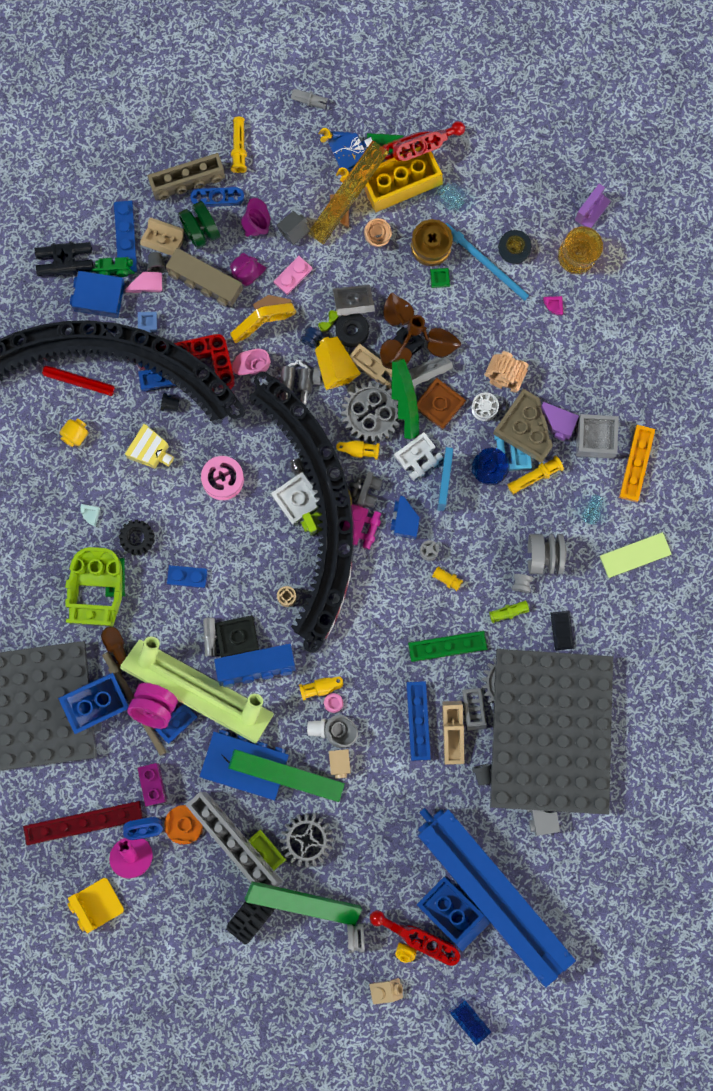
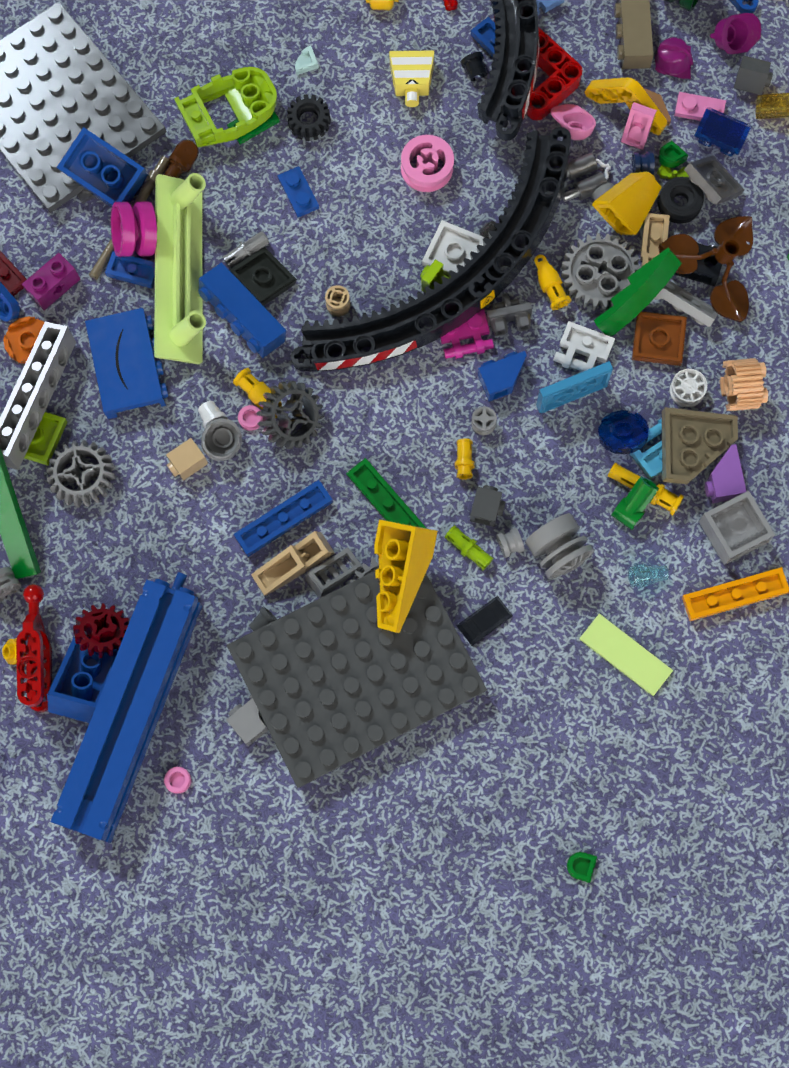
camera: 65 degrees right, 5 degrees down
(286, 324) = (638, 126): none -> bright pink plate
(286, 775) = (137, 407): green tile -> none
(316, 315) = (671, 155): none -> green tile
(322, 272) = (722, 131): none -> clear blue brick
(352, 675) = (299, 397): none -> dark grey gear
(434, 879) = (100, 627): none -> dark red gear
(488, 583) = (487, 506): none -> dark grey brick
(506, 662) = (403, 562): none -> yellow wedge
(543, 489) = (633, 506): none -> green piece
(554, 890) = (177, 780): none -> bright pink tile

